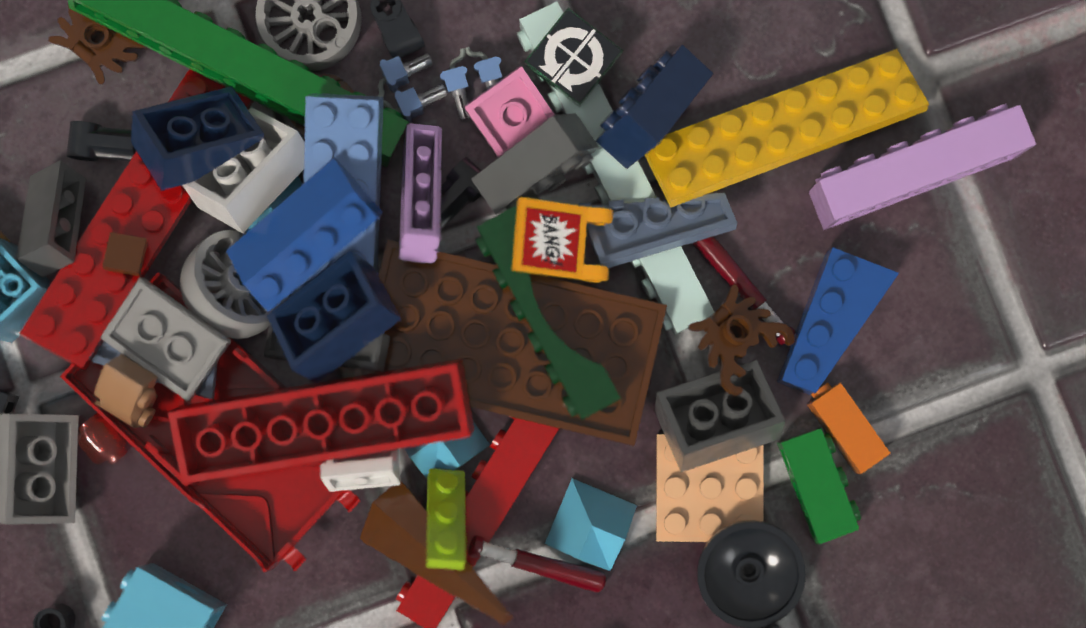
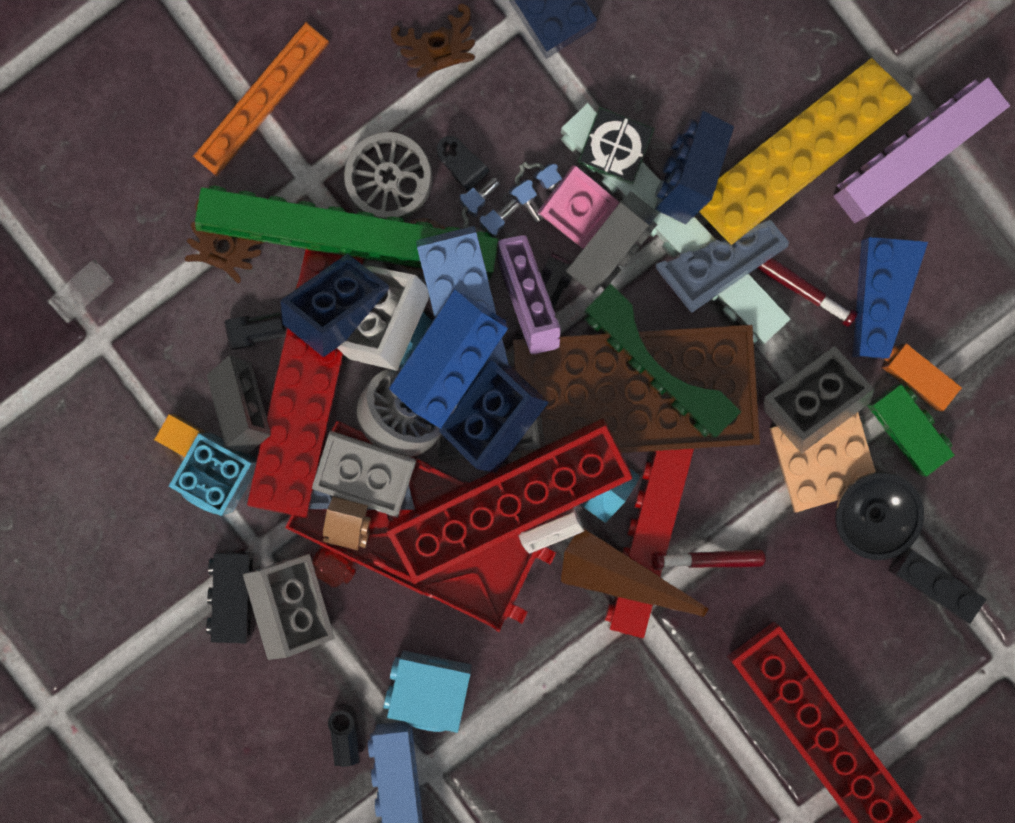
camera: 20 degrees left, 5 degrees up
(125, 254) = (309, 416): reddish brown tile -> none
(445, 519) = (629, 547): lime plate -> none
(553, 239) = (648, 300): flag -> none
(591, 525) = (740, 515): medium azure slope -> none
(732, 331) = (809, 329): reddish brown animal -> none

